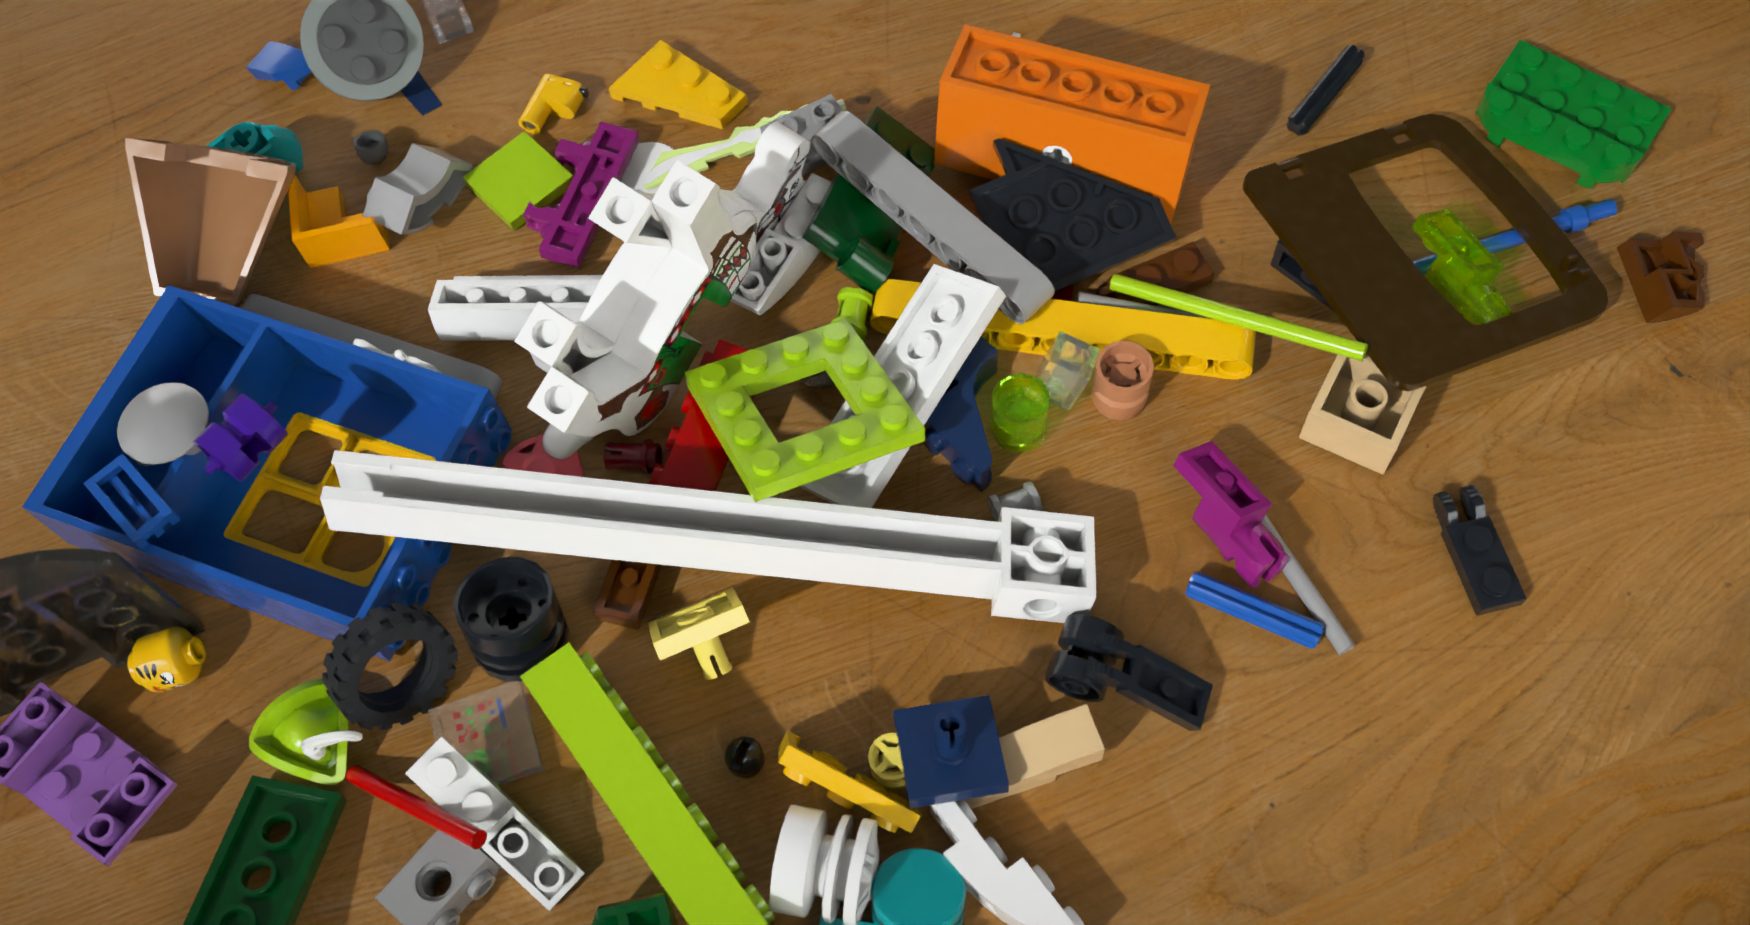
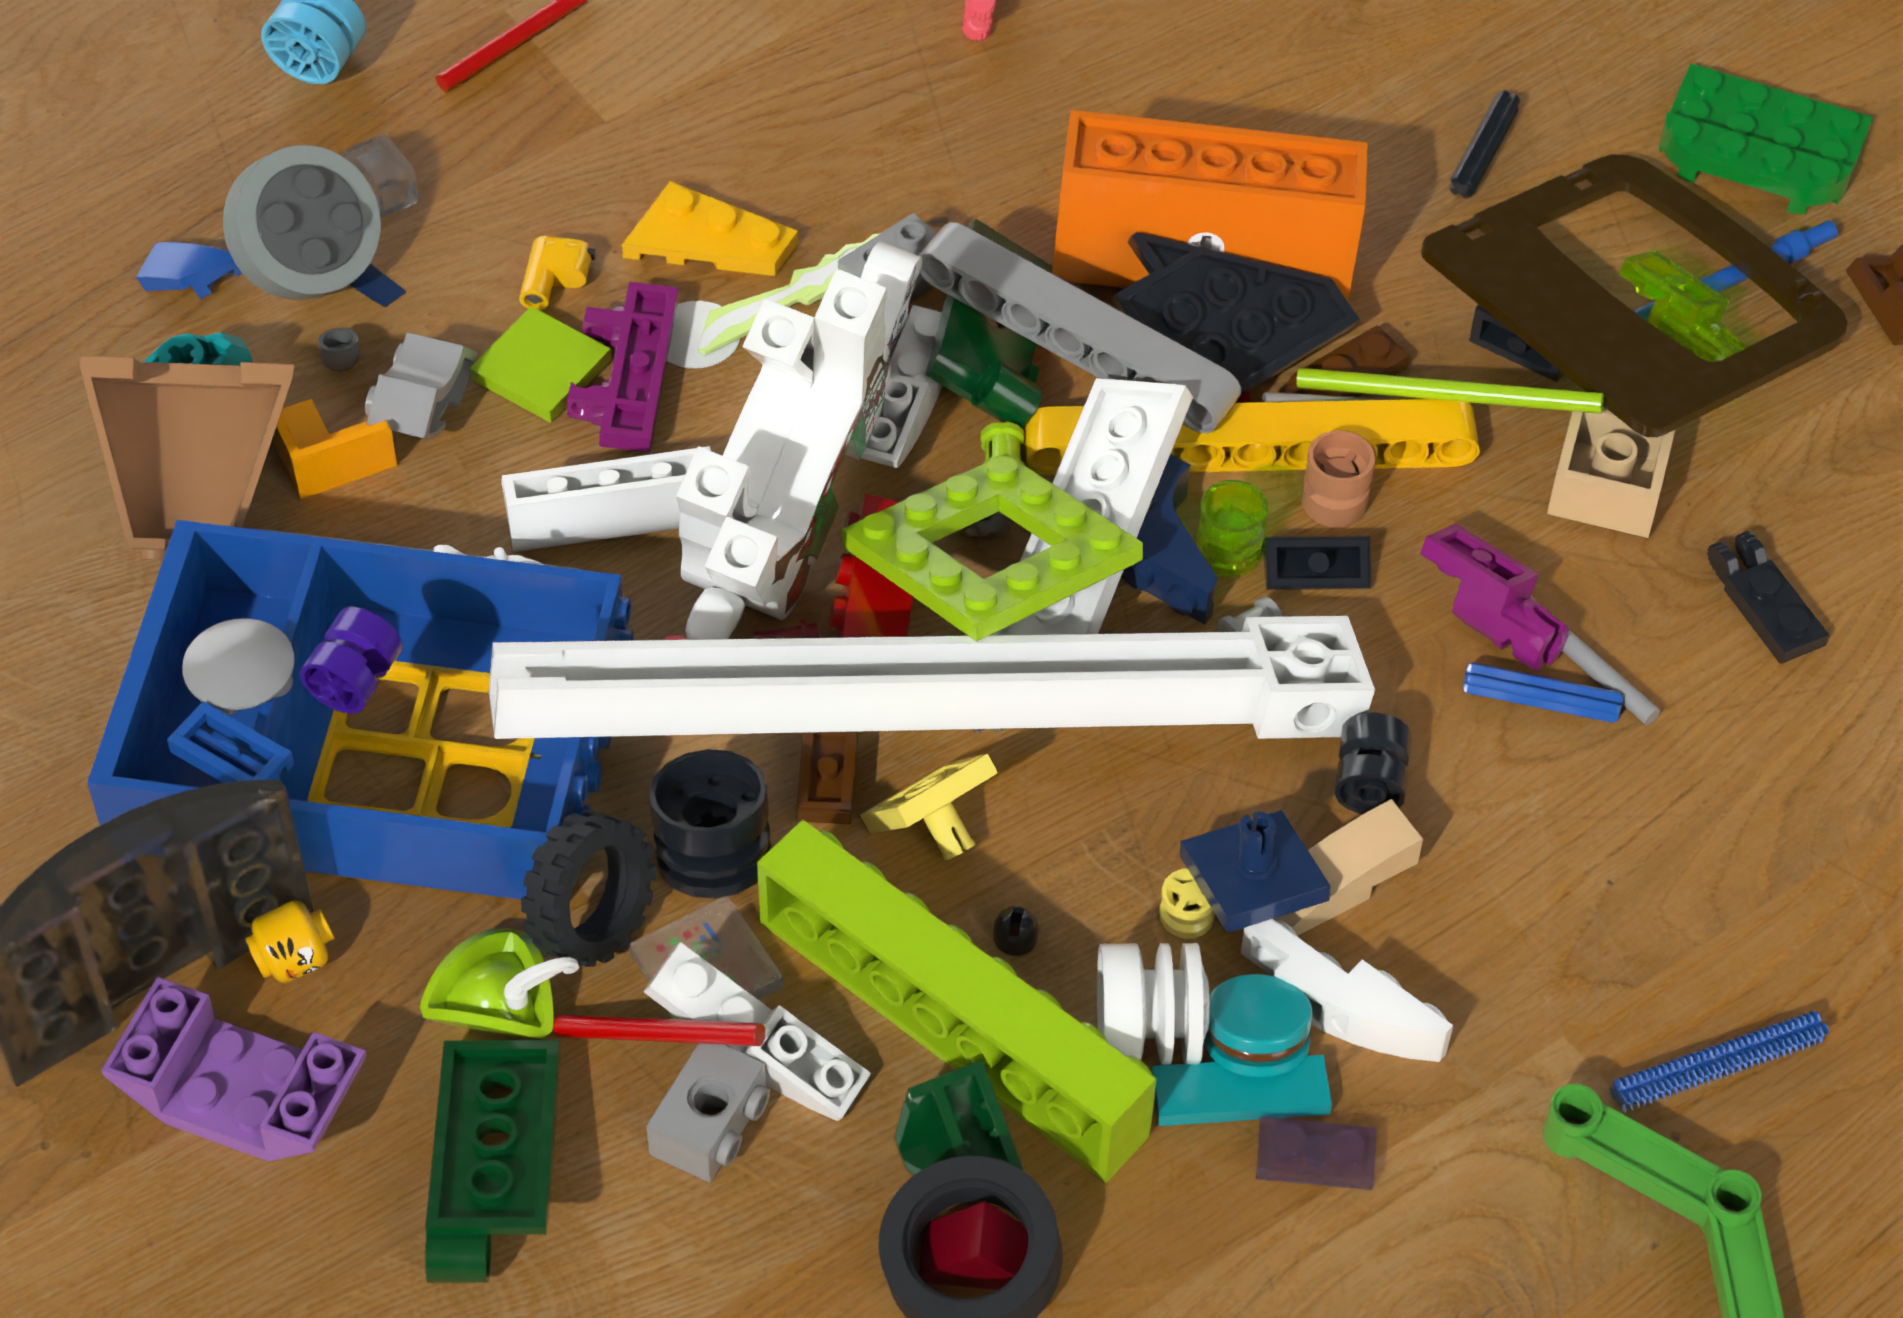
camera: 20 degrees left, 10 degrees down
(886, 806) = (1140, 923): yellow wing -> none
(1067, 369) = (1276, 469): clear brick -> none
(1088, 453) = (1317, 563): none -> black slope
(1152, 682) = (1452, 769): black hinge -> none

